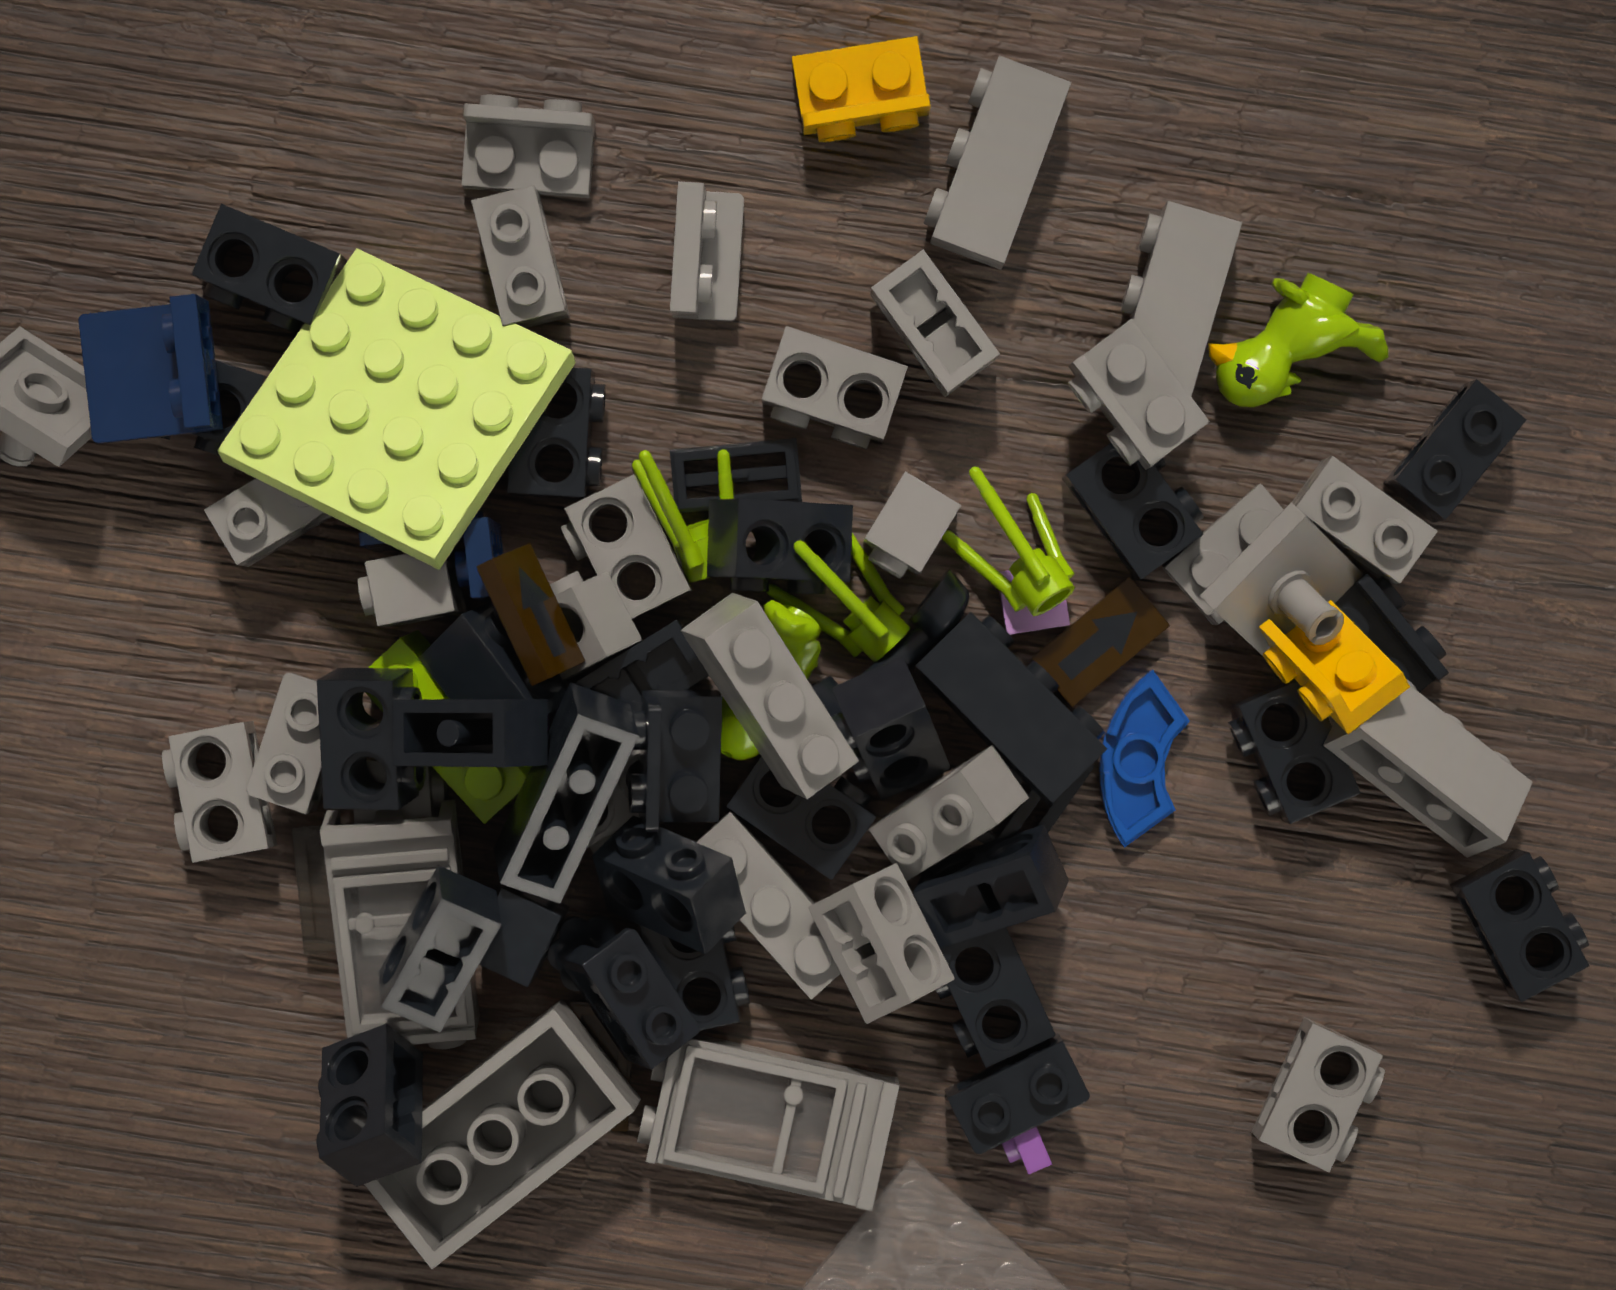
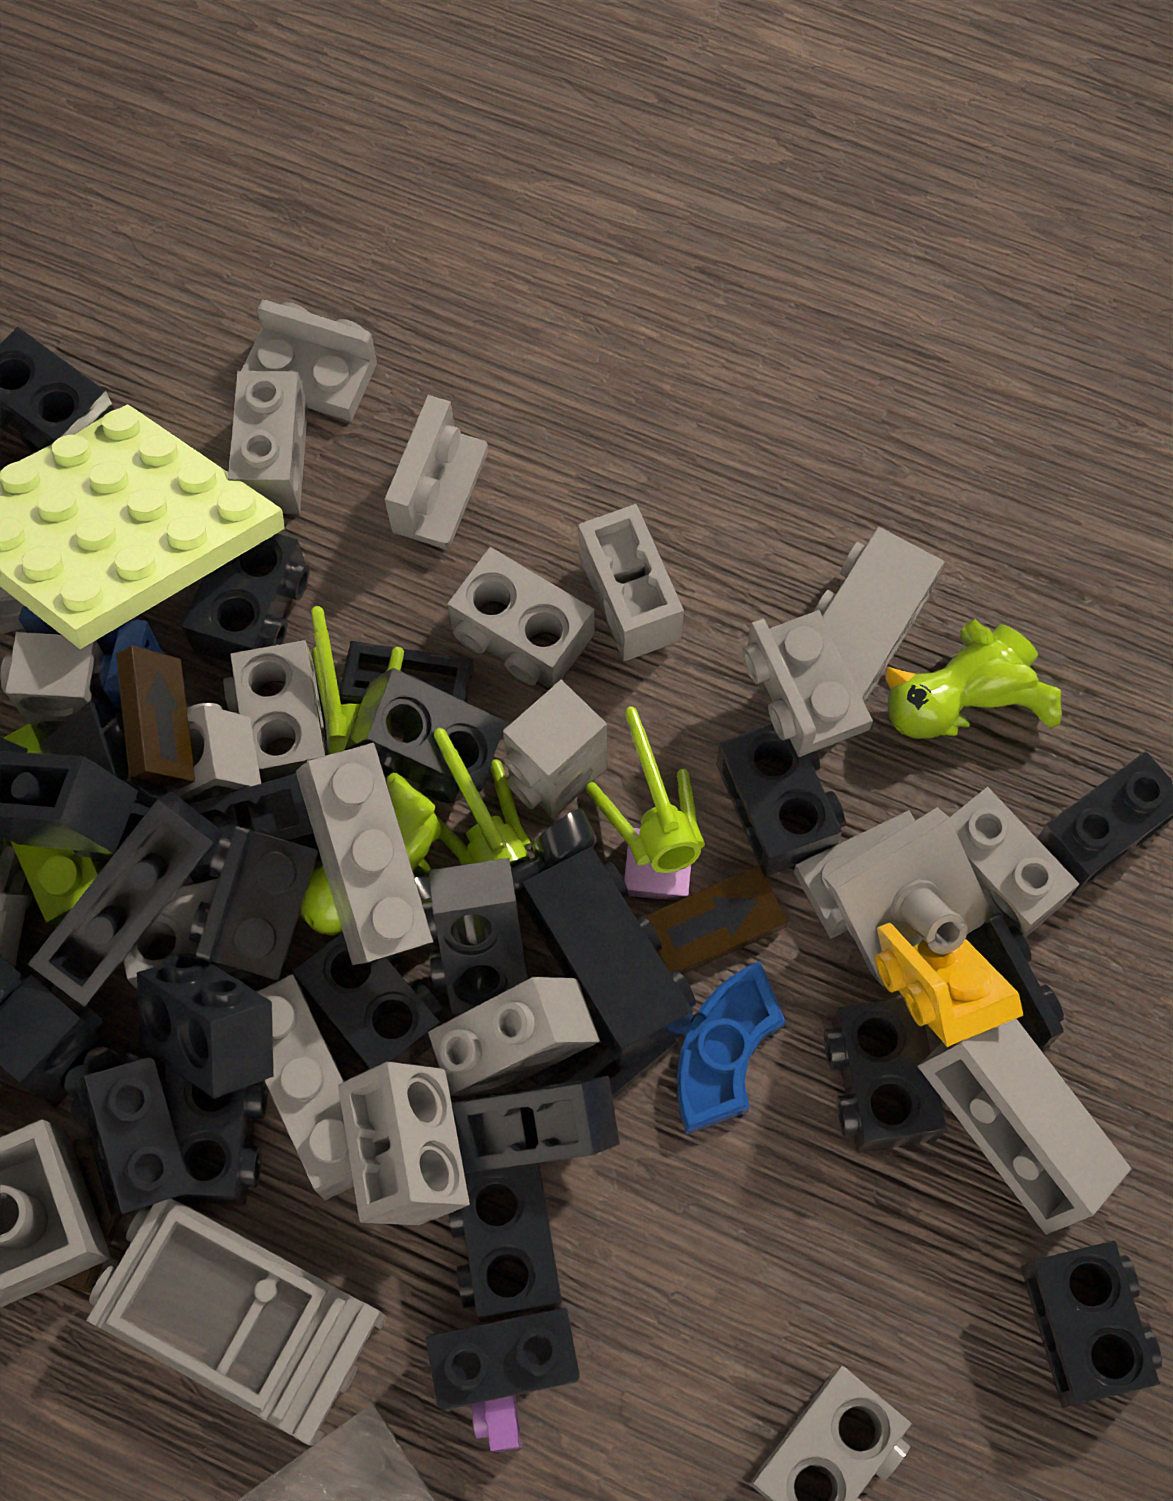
camera: 10 degrees right, 20 degrees down
(861, 88) = (620, 385): yellow bracket -> none
(996, 161) = (727, 468): light grey brick -> none

